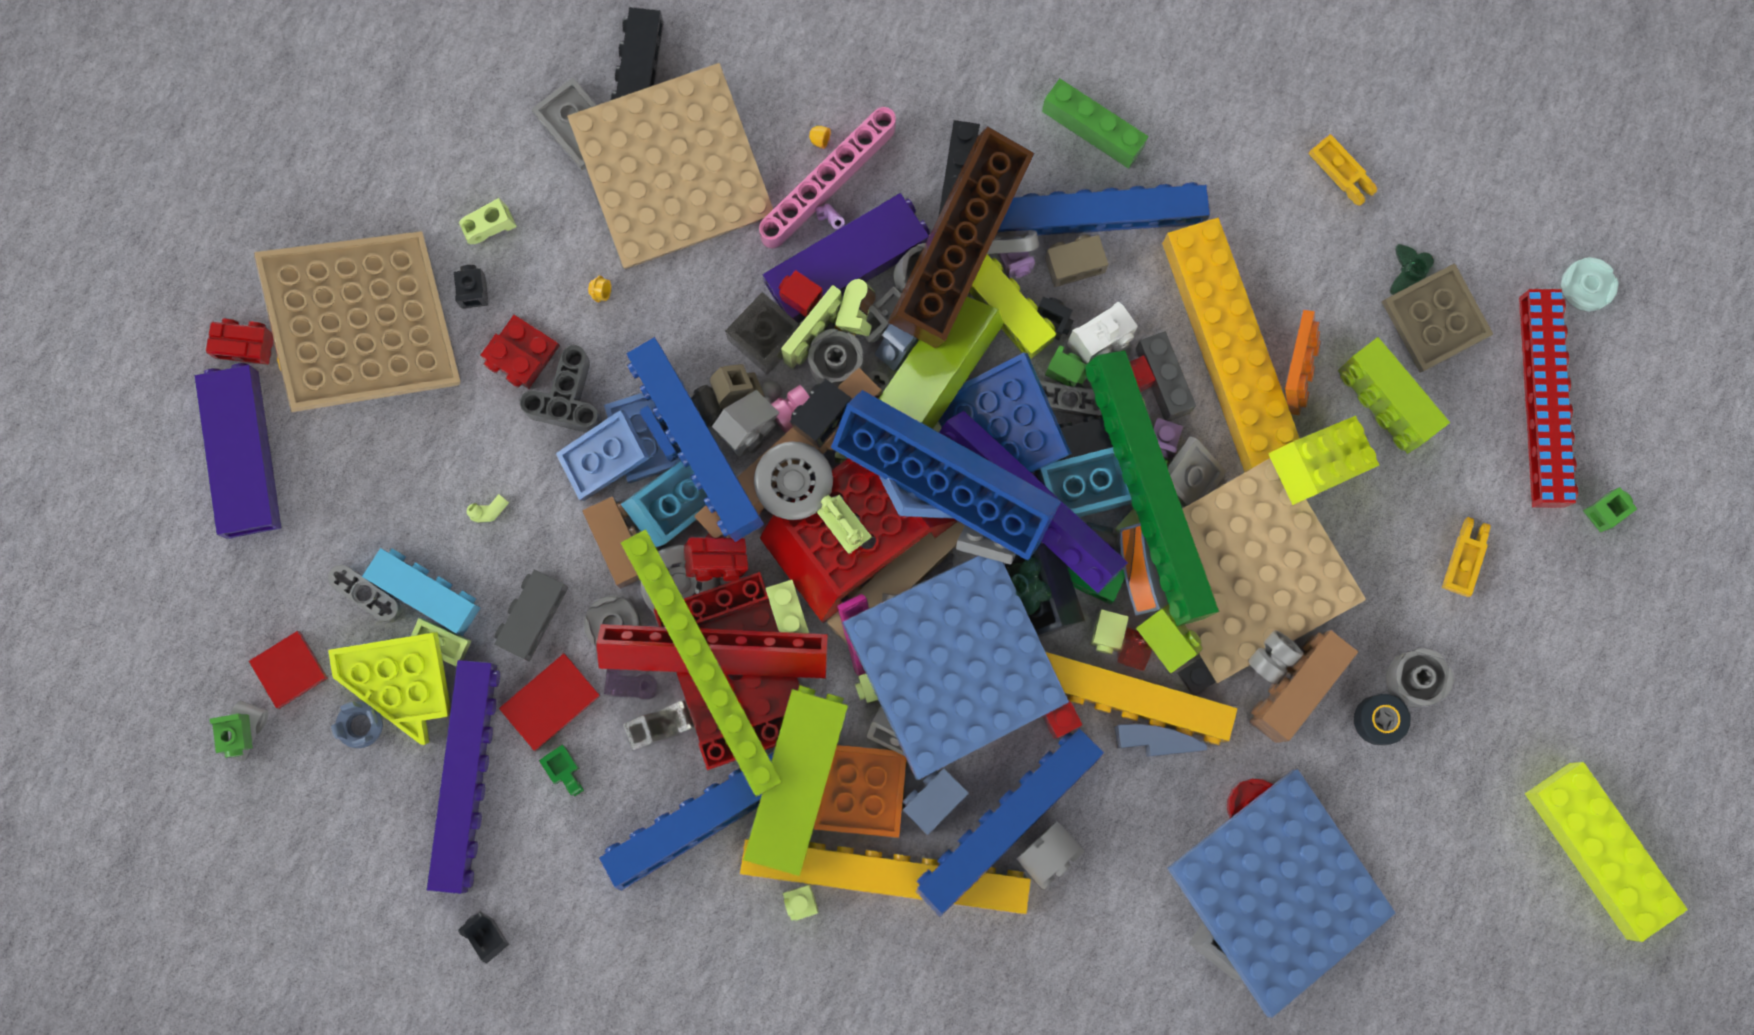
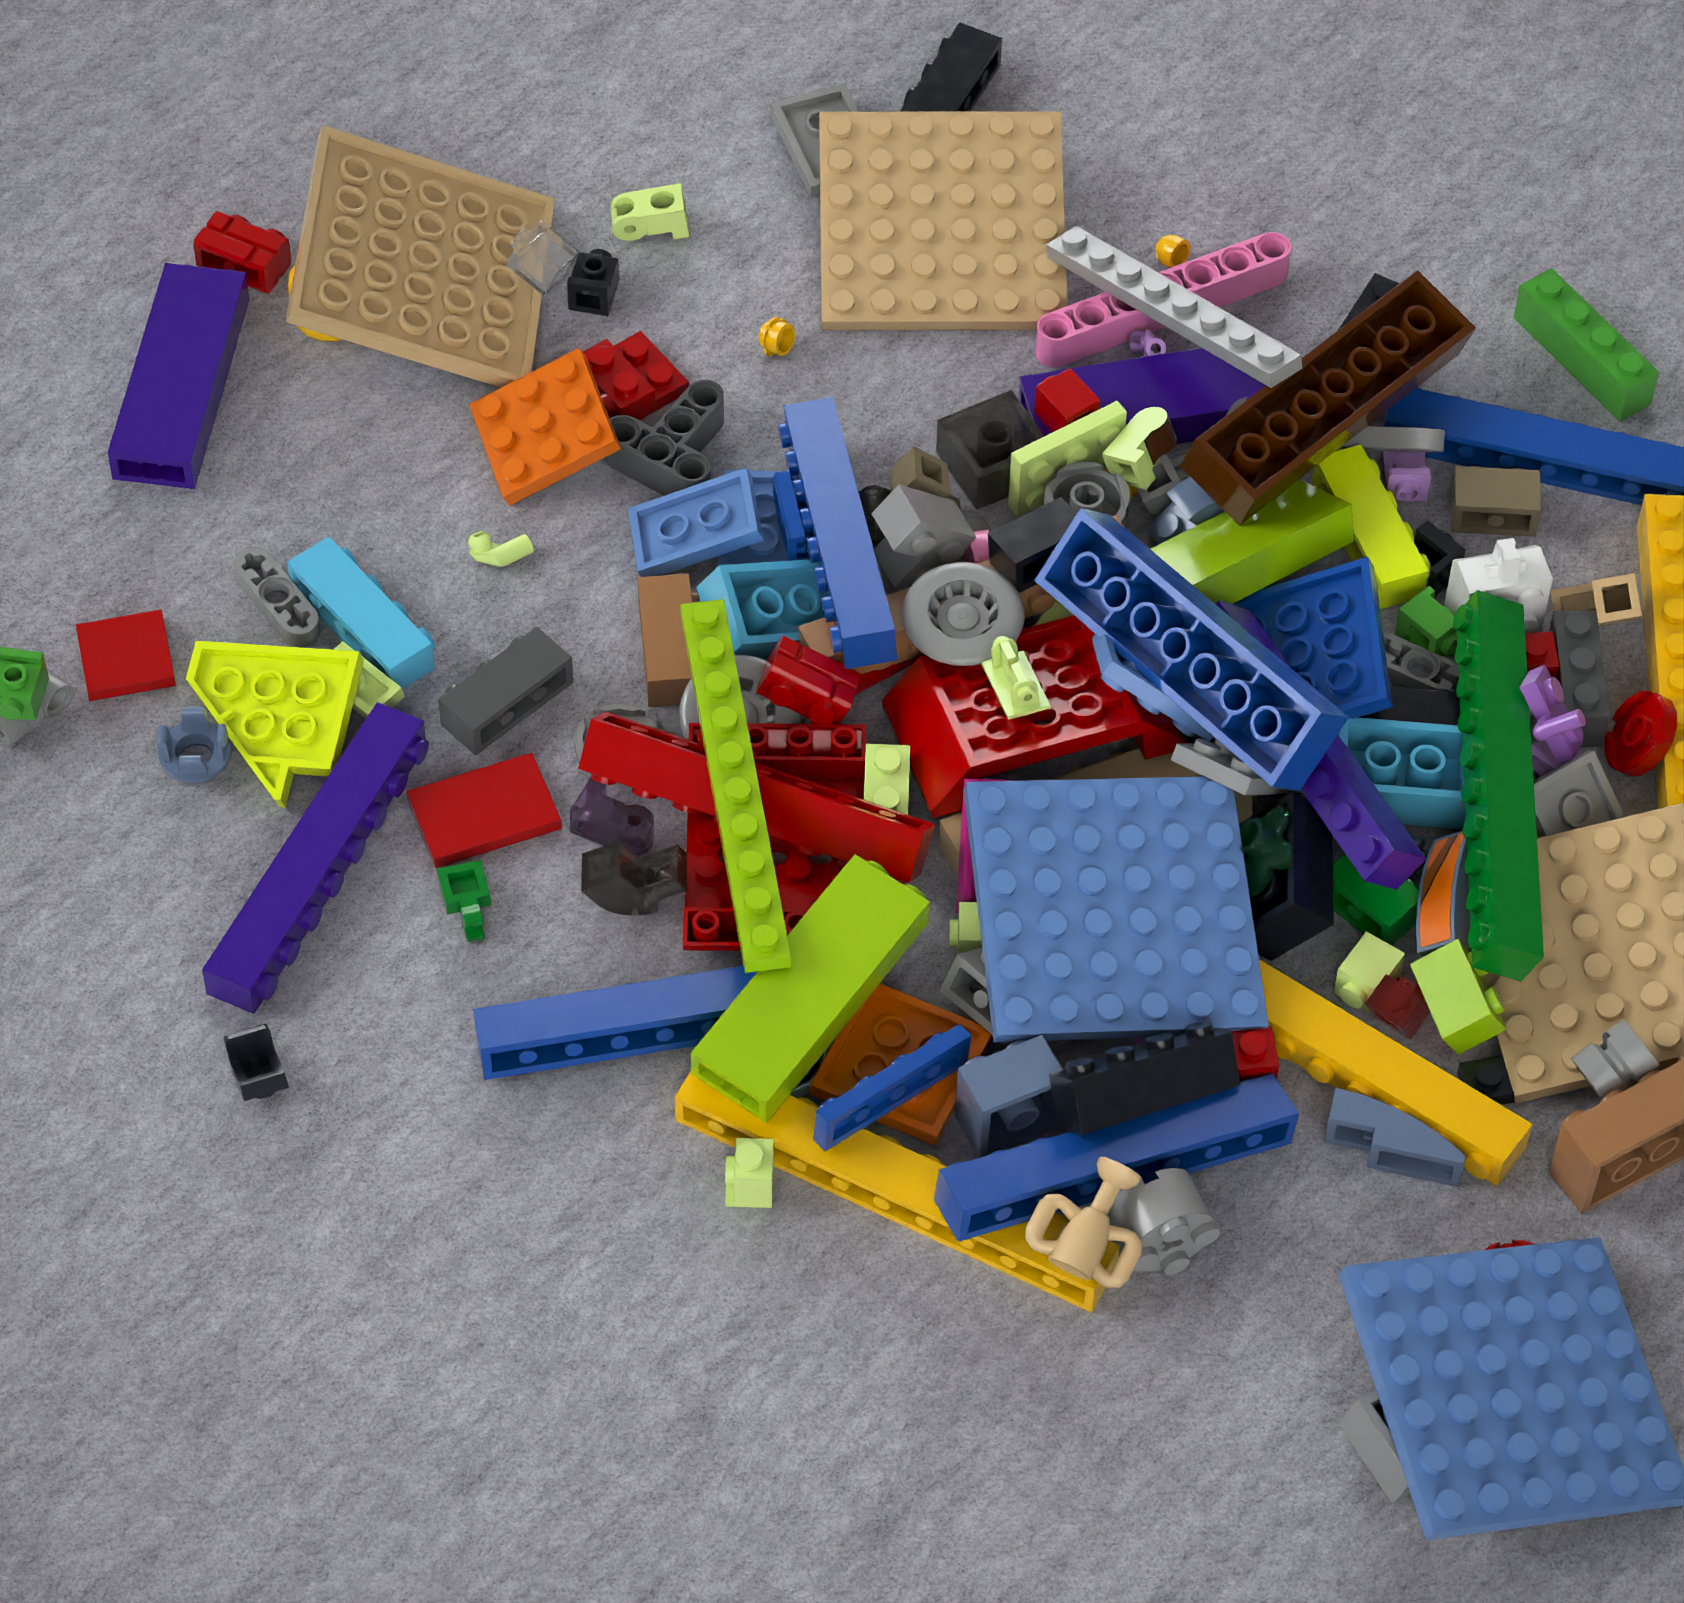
camera: 20 degrees right, 25 degrees down
(431, 287) = (541, 257): none -> clear brick
(482, 413) = (544, 426): none -> orange plate
(845, 202) = (1175, 307): none -> light grey plate
(870, 815) = (891, 1087): none -> blue plate
(1012, 773) = (1144, 1078): none -> black brick
(1014, 890) = (1089, 1229): none -> tan piece
(1167, 316) = (1613, 599): none -> tan brick
(1171, 429) = (1554, 722): none -> medium lavender plate
(1216, 407) = (1641, 733): none -> red tile

